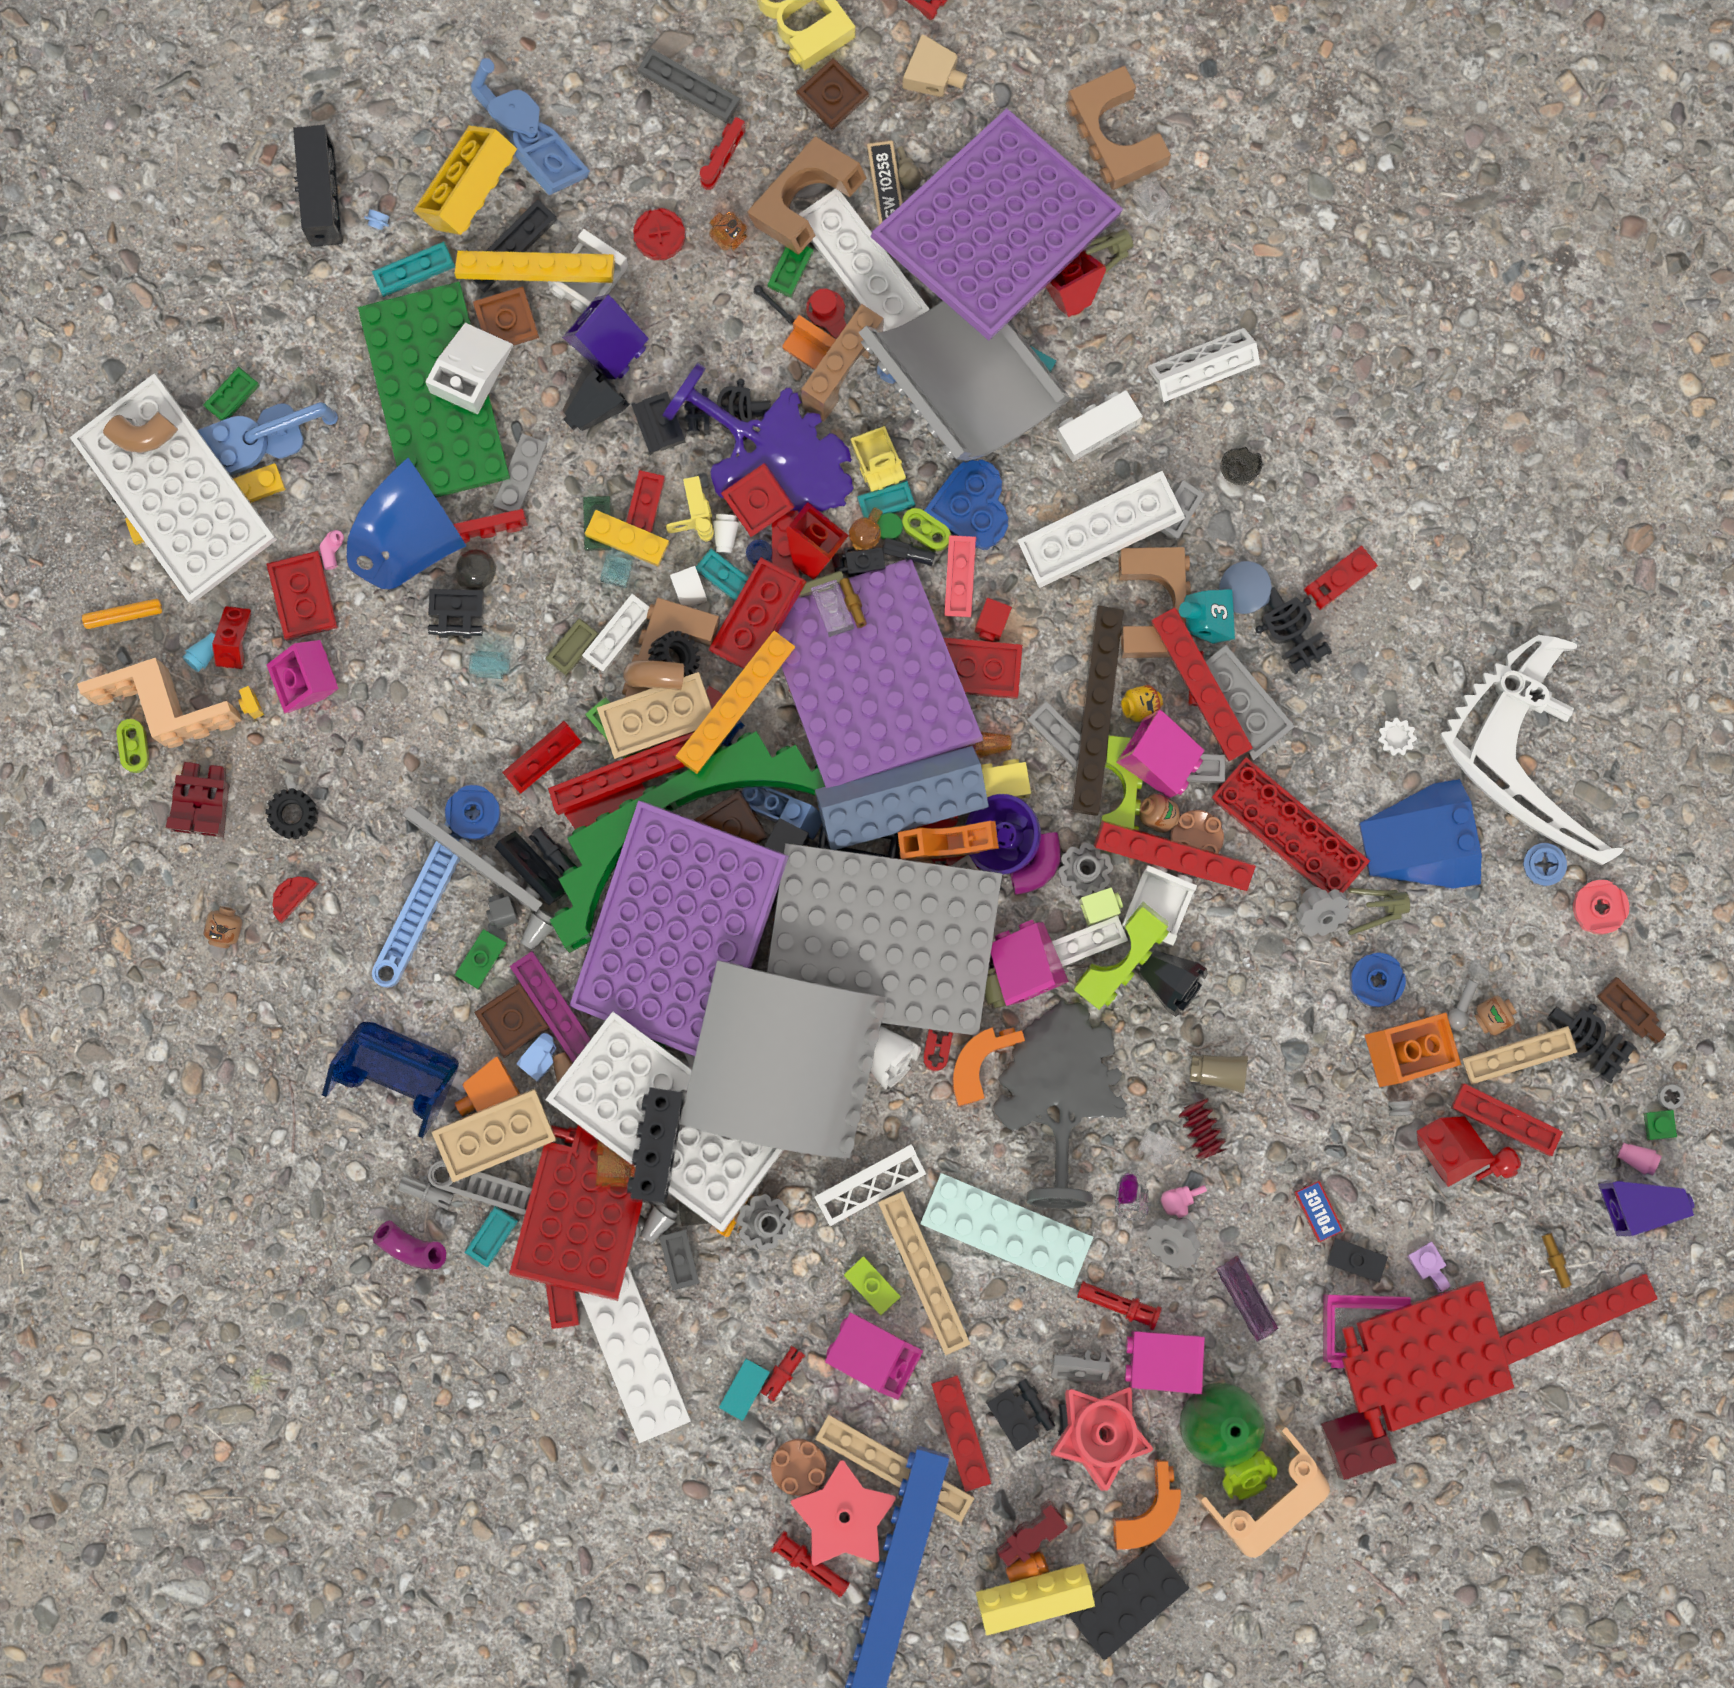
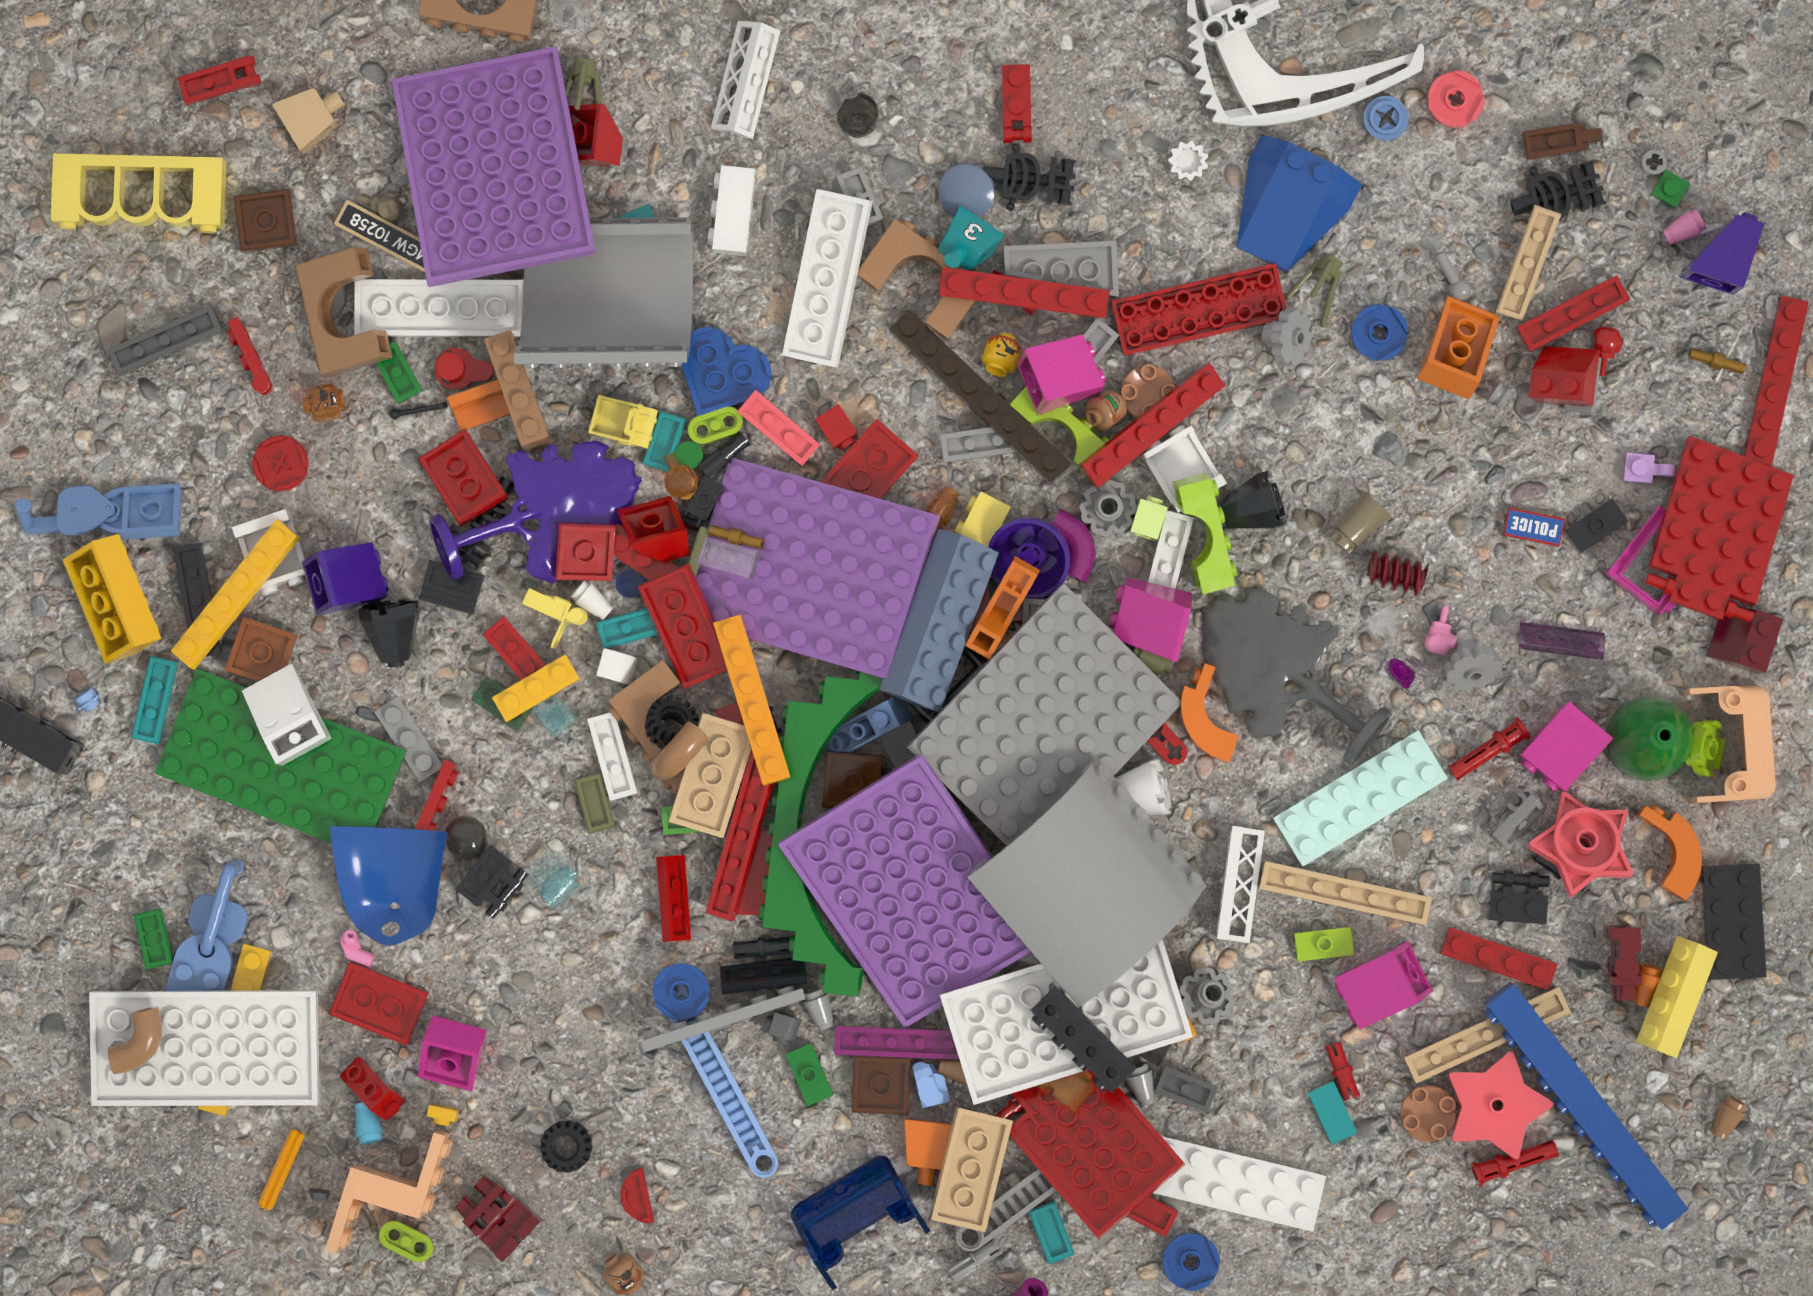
camera: 45 degrees left, 5 degrees up
(531, 1367) = (1205, 1268): none -> blue plate
(747, 371) = (463, 477): none -> red tile
(1495, 1015) = (1481, 257): medium nougat head -> none

